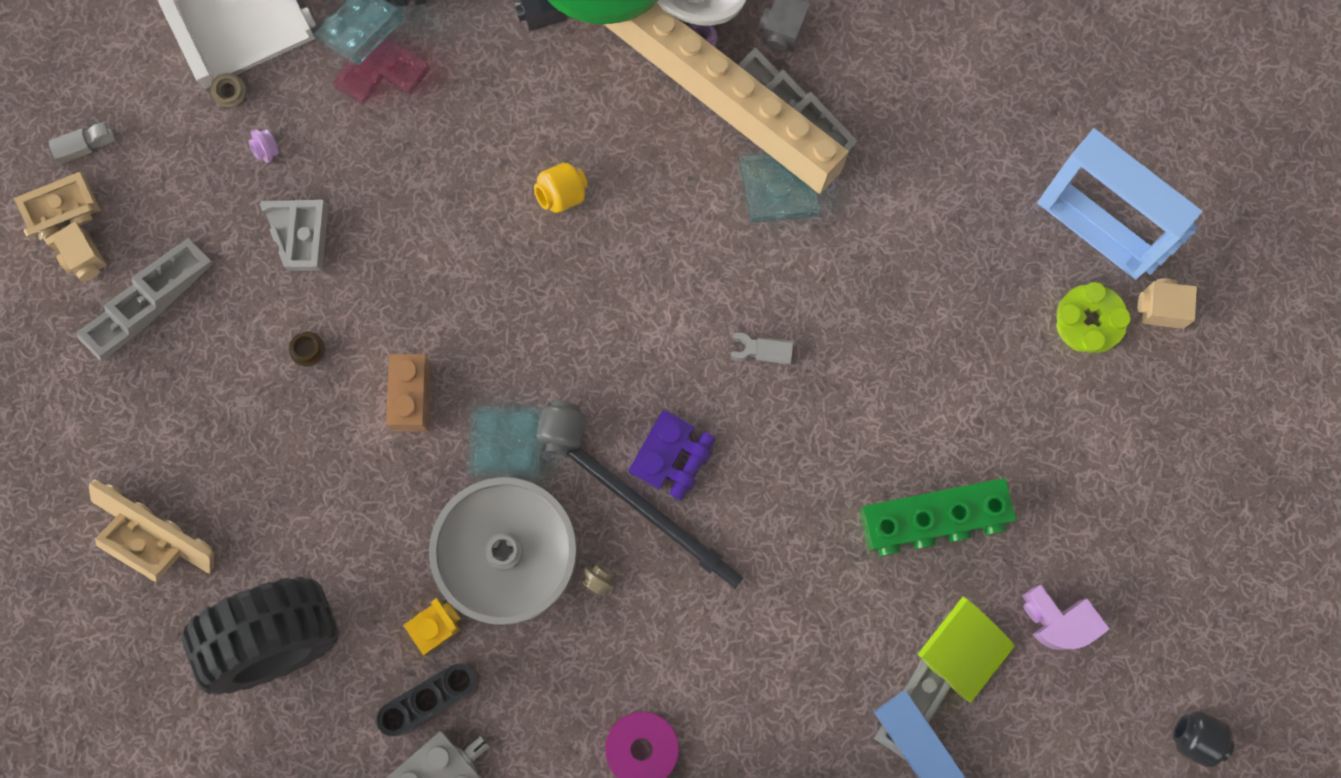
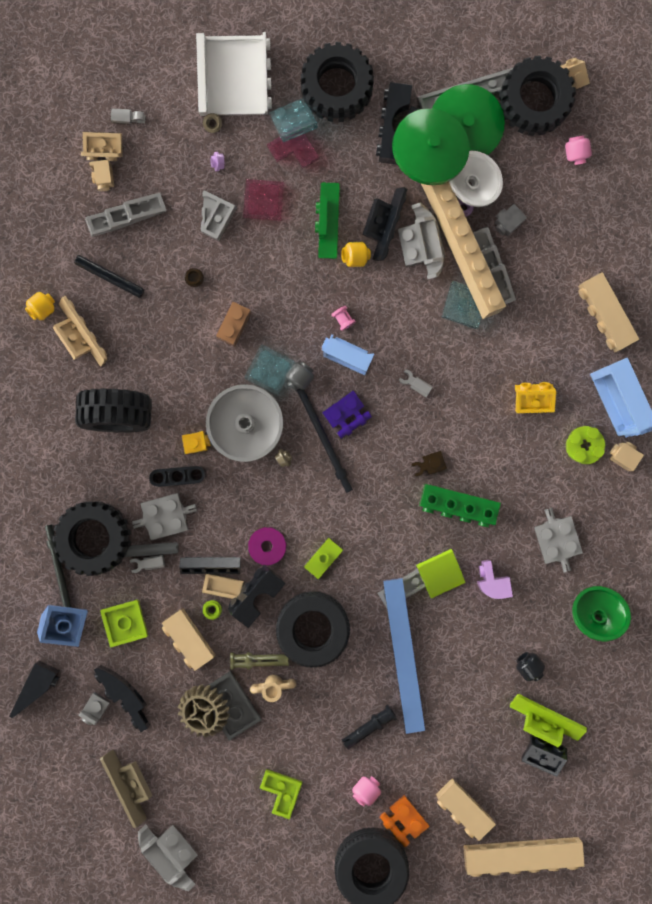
camera: 20 degrees right, 10 degrees up
(58, 518) = (40, 306): none -> yellow head
(159, 413) = (109, 276): none -> black axle
(367, 172) = (263, 200): none -> clear pink plate
(490, 156) = (328, 220): none -> green bracket
(581, 117) = (382, 222): none -> black bracket
(589, 298) = (343, 318): none -> bright pink bush
(624, 352) = (347, 354): none -> light blue window
(661, 118) = (423, 242): none -> light grey plate
(750, 723) = (323, 558): none -> lime plate
(855, 469) = (432, 463): none -> dark brown plate
(970, 280) = (535, 398): none -> yellow bracket
(1015, 92) = (608, 312): none -> tan brick
(1131, 496) = (558, 539): none -> light grey plate
(1276, 570) = (606, 605): none -> green dish

